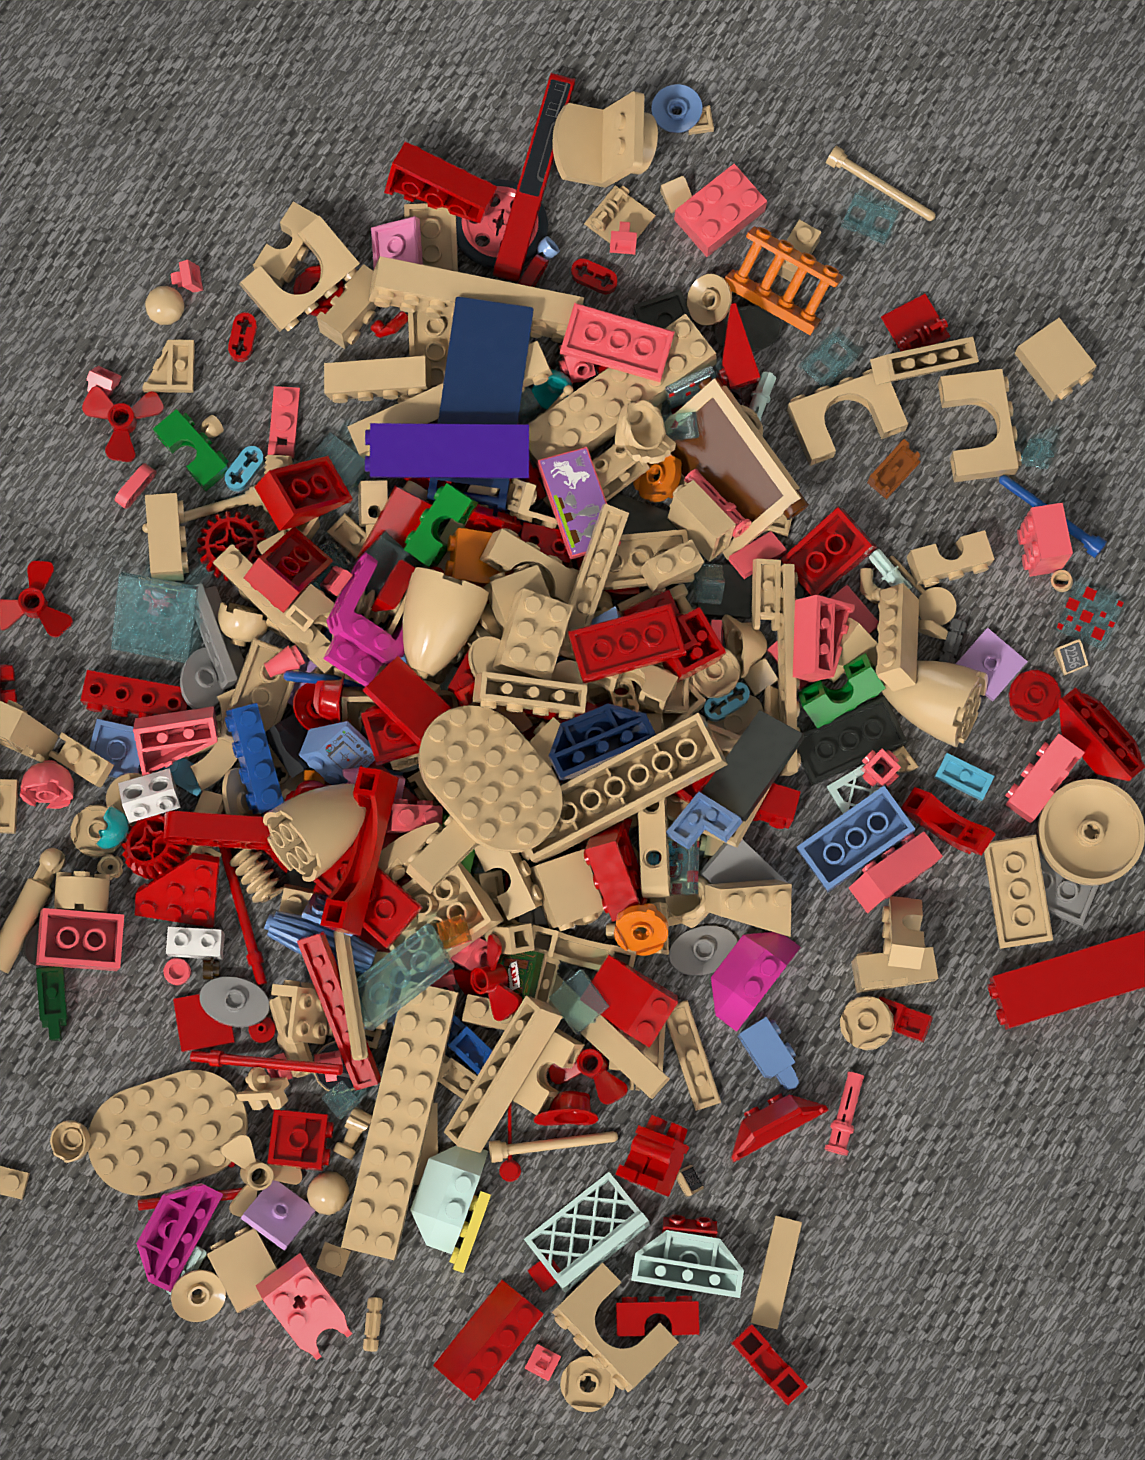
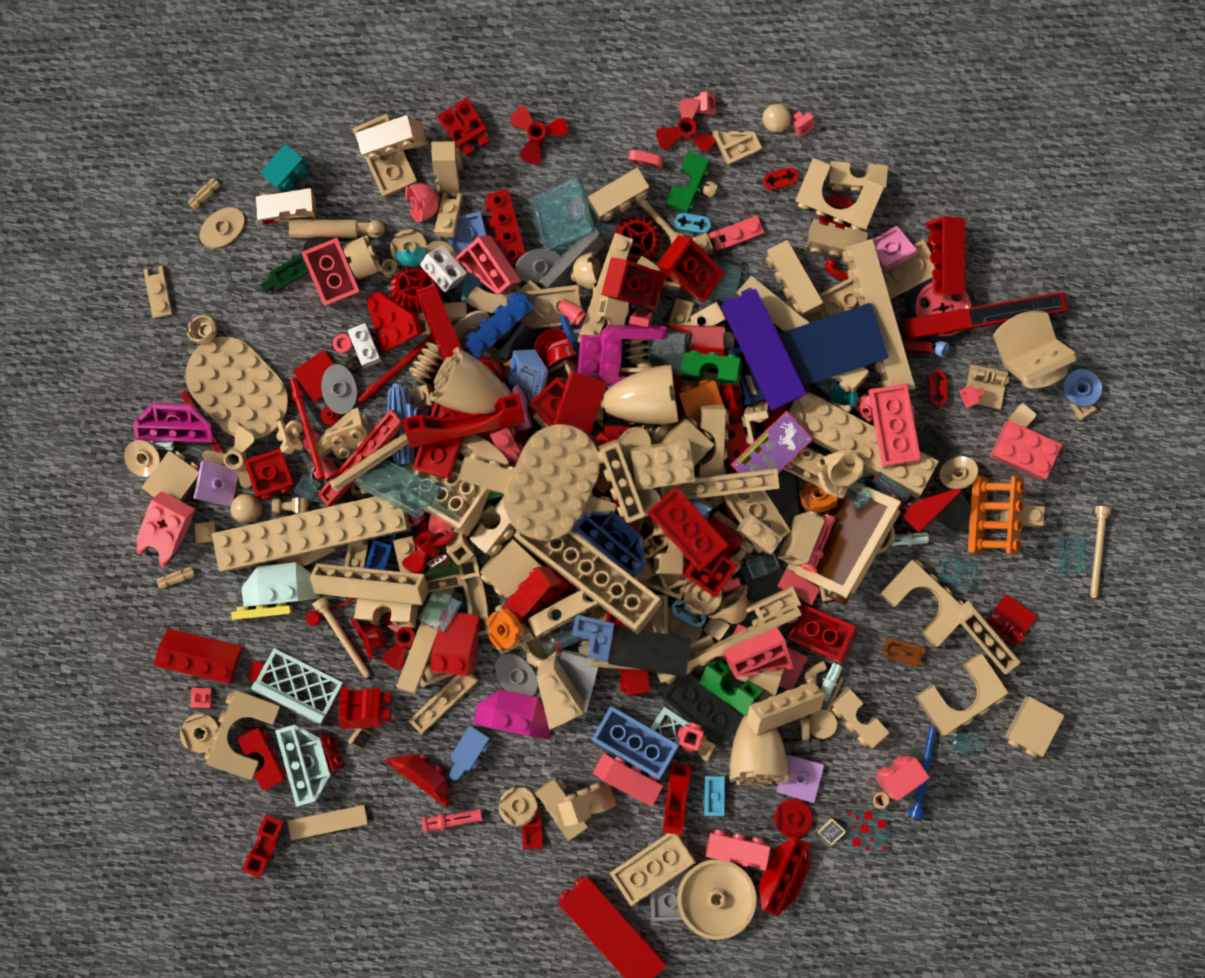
camera: 65 degrees right, 5 degrees up
(393, 587) = (653, 358): red slope -> none
(454, 932) = (441, 507): clear orange tile -> none

